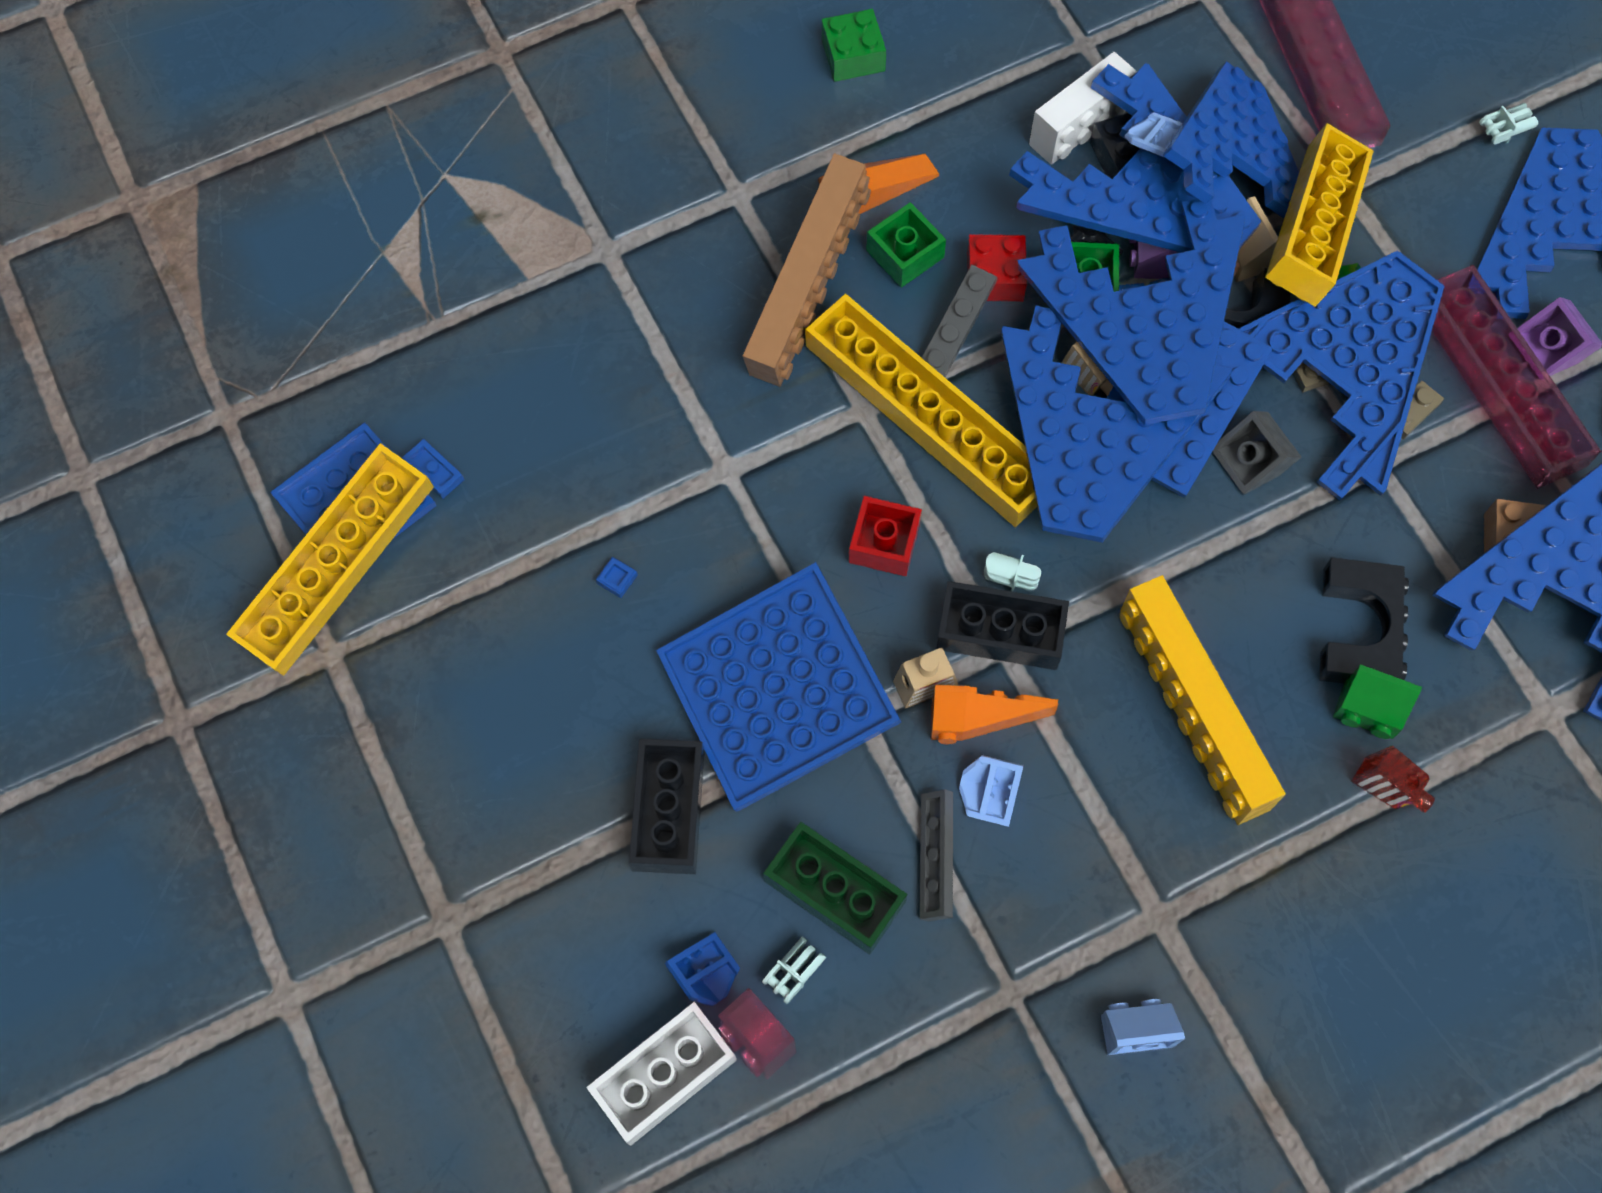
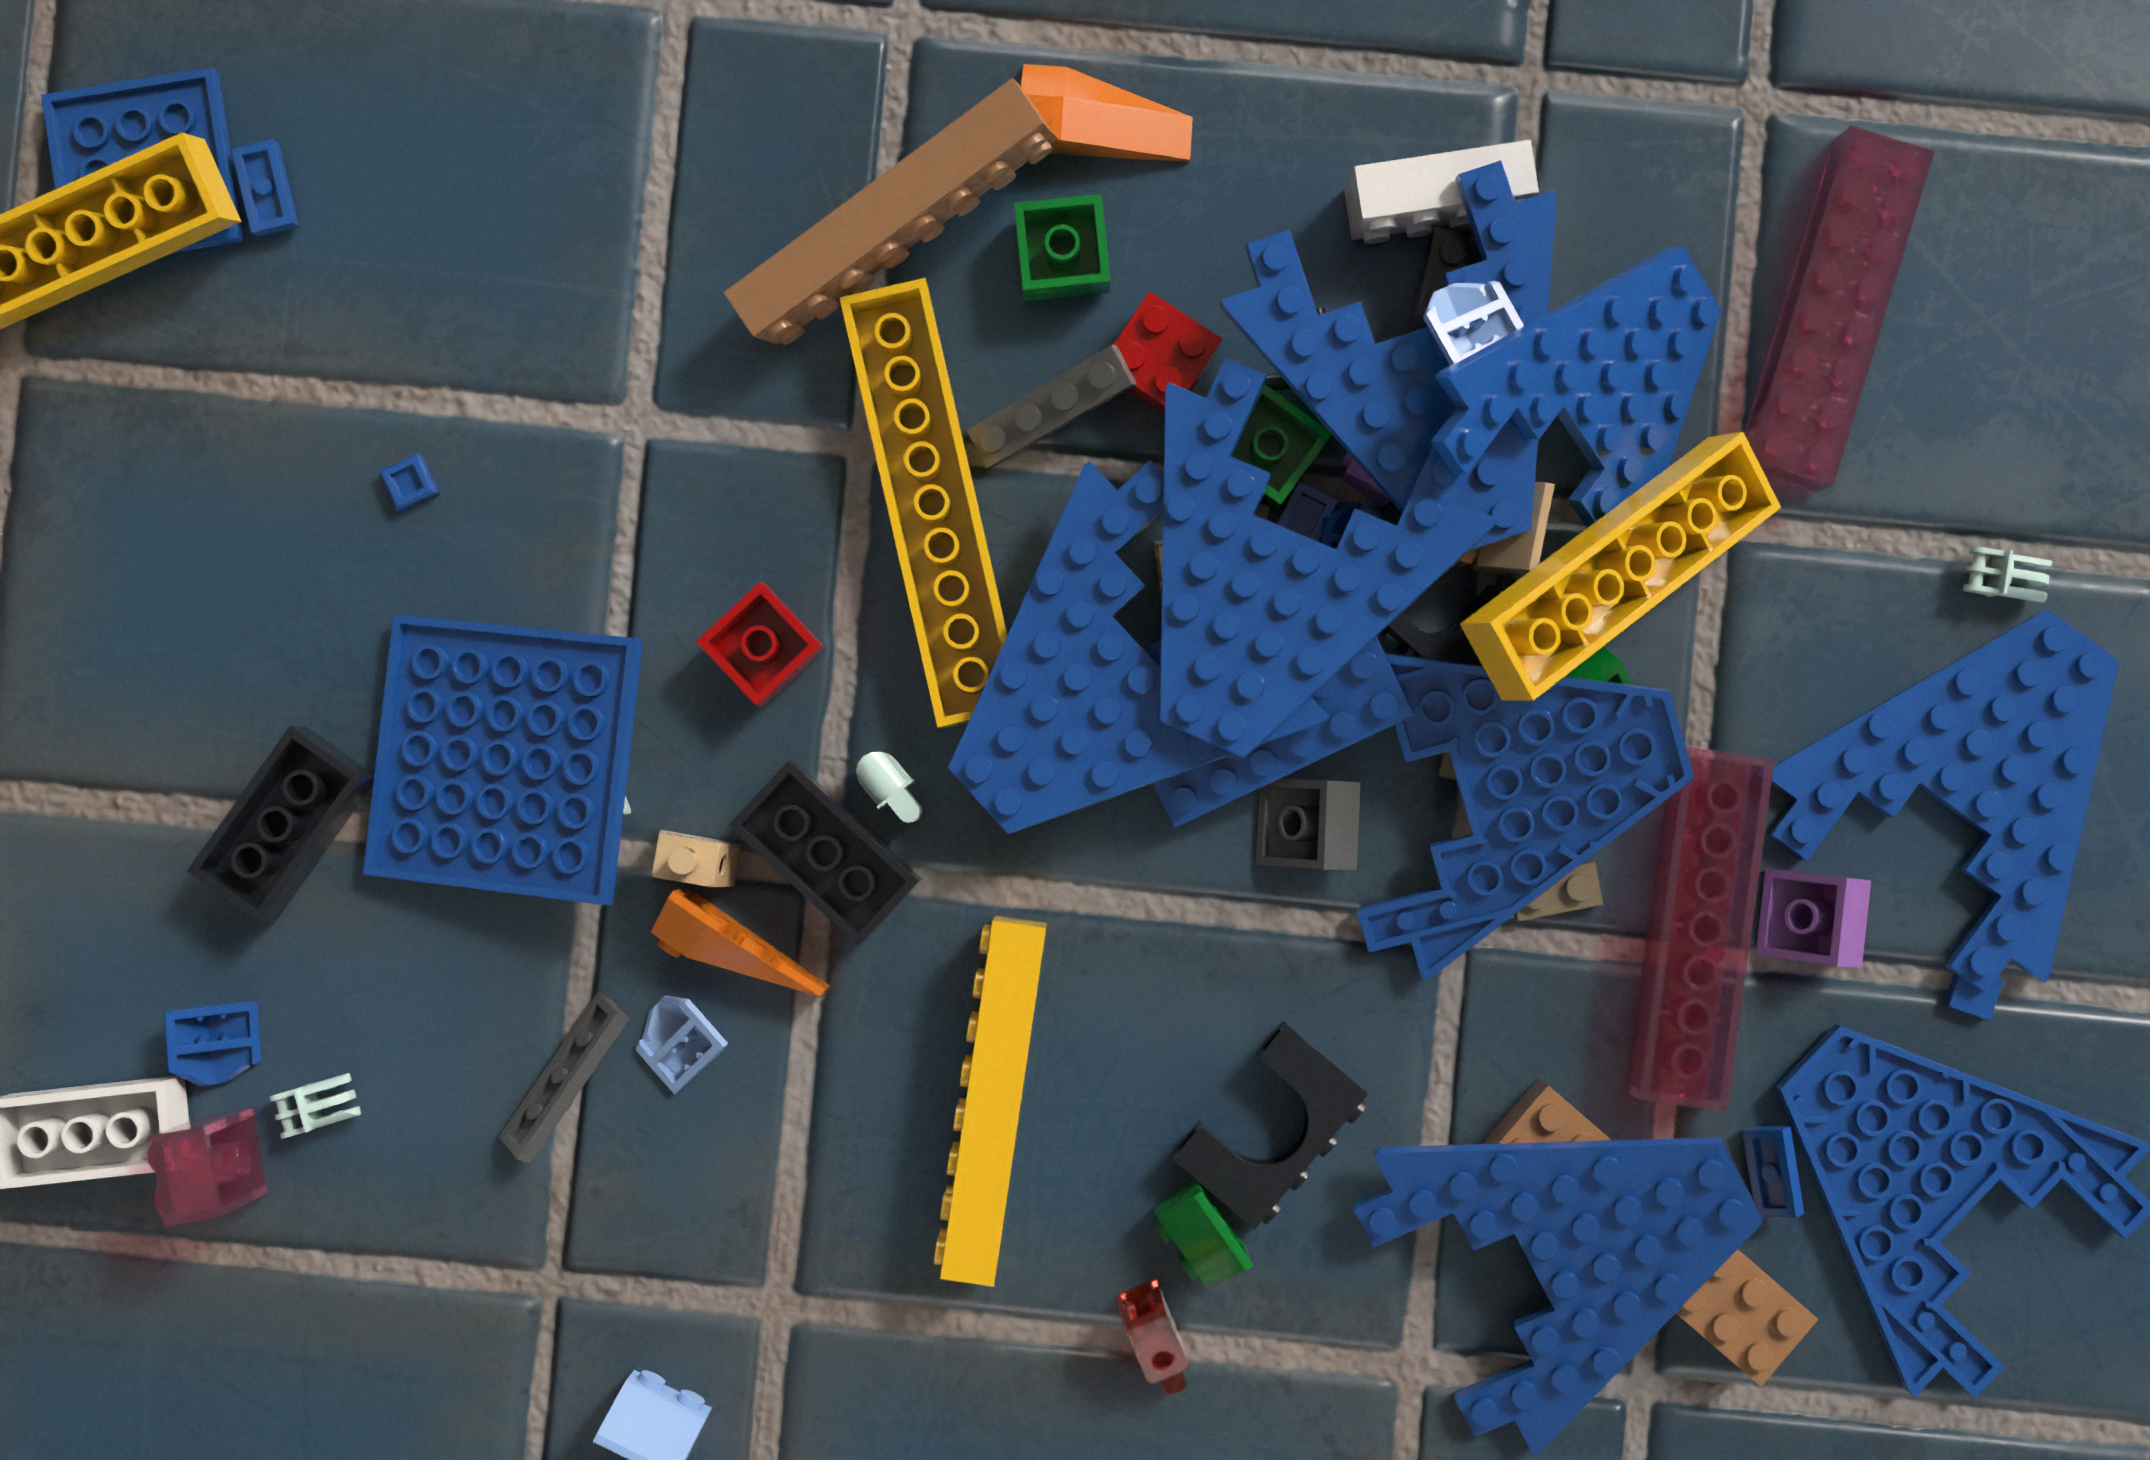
camera: 30 degrees right, 20 degrees up
(835, 887) = (415, 1045): dark green brick -> none

